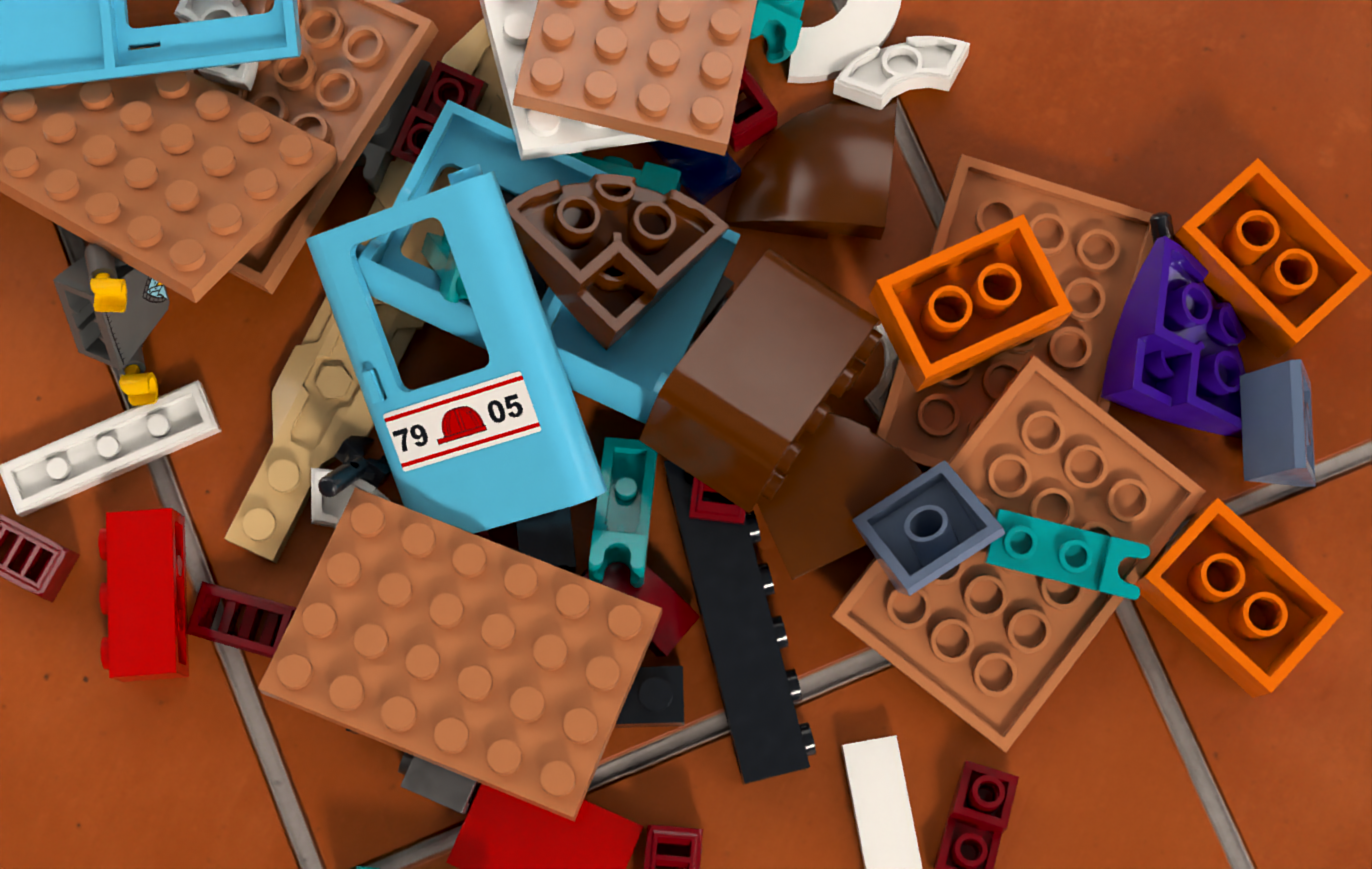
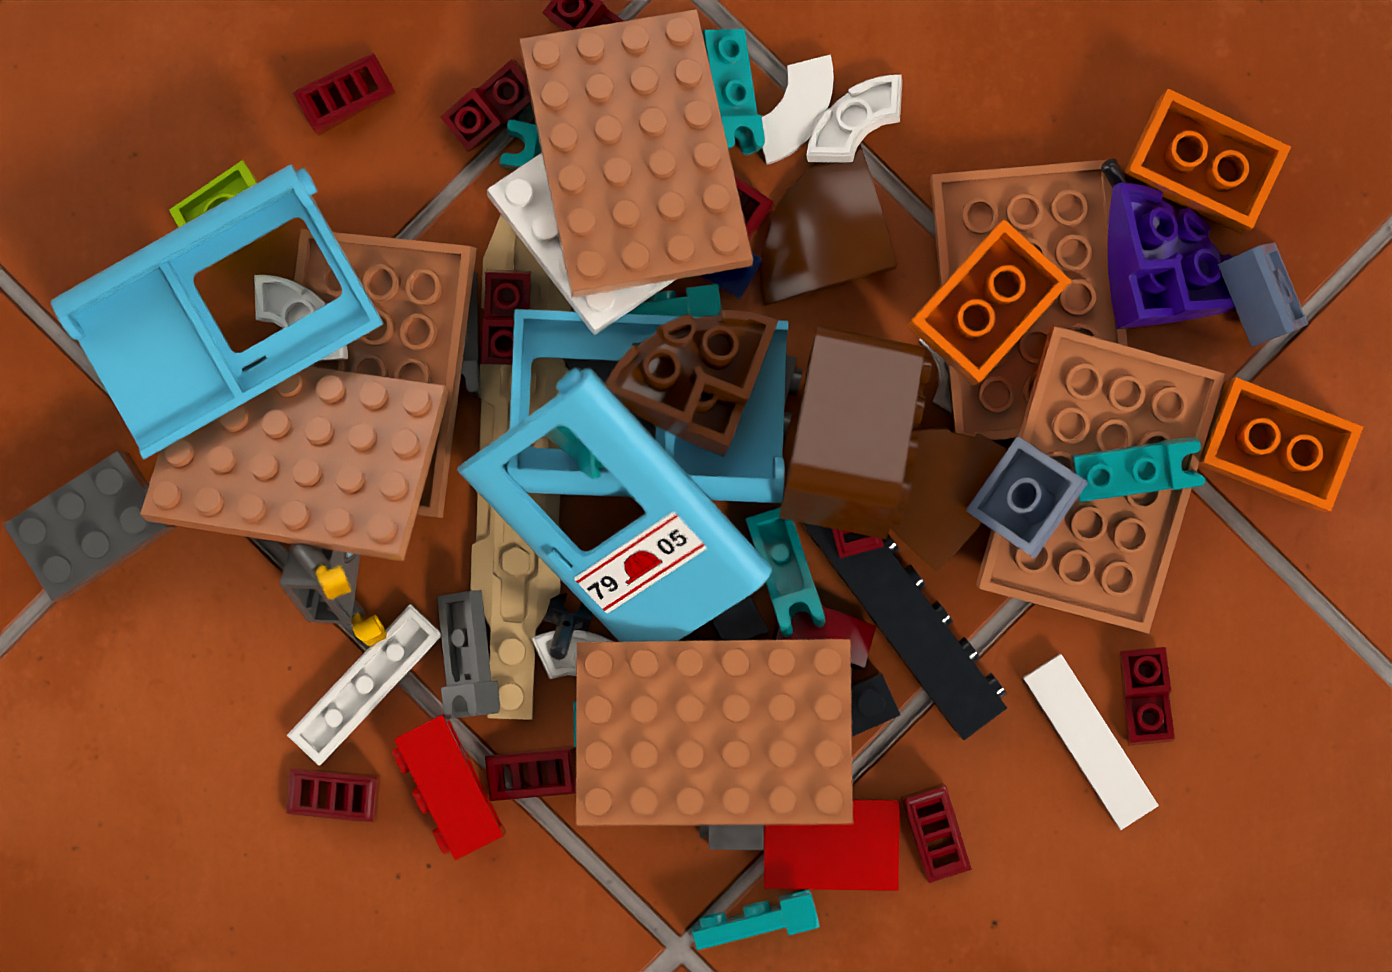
camera: 20 degrees left, 10 degrees up
(230, 461) = (466, 657): none -> dark grey plate

